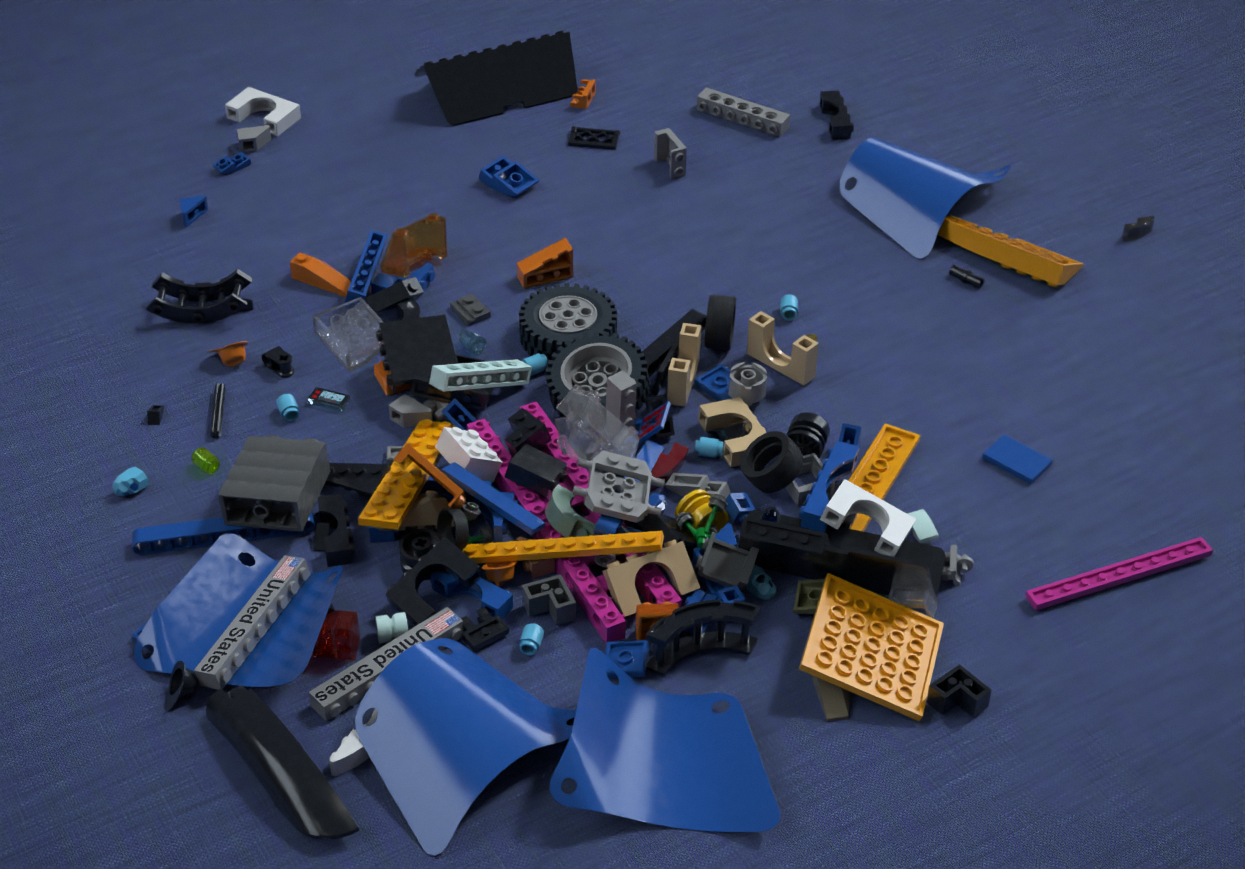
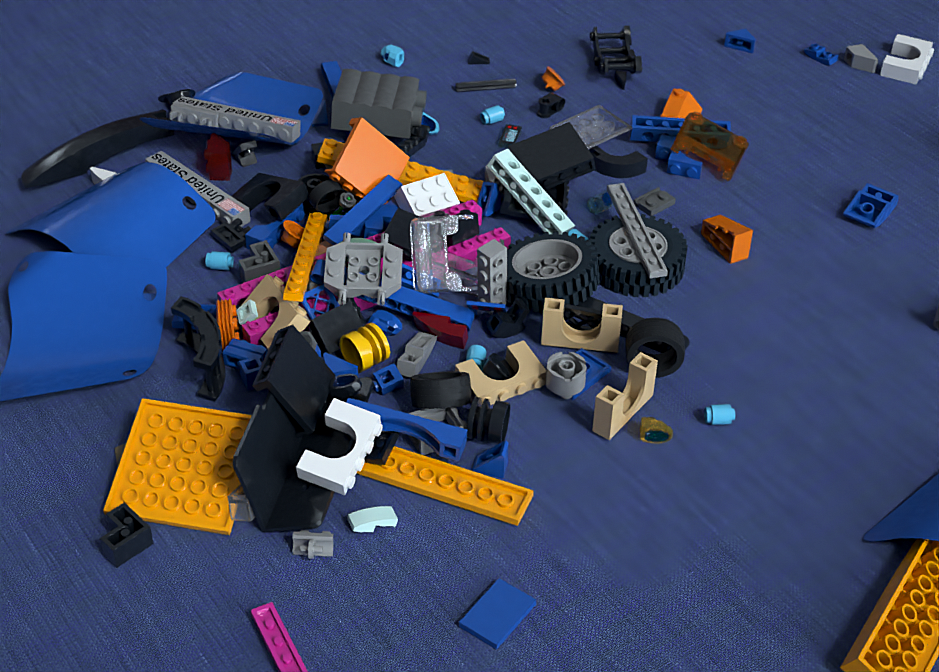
camera: 85 degrees right, 0 degrees up
(205, 460) = (425, 82): clear neon green brick -> none
(246, 657) = (193, 115): none -> light grey plate
(389, 297) = (656, 154): black slope -> none
(390, 627) = (231, 182): light aqua wheel -> none
(549, 310) = (637, 231): none -> light grey tile
(642, 597) = (247, 312): none -> light aqua tile
(685, 521) = (348, 333): plant -> none
(966, 276) = (836, 578): black pin -> none

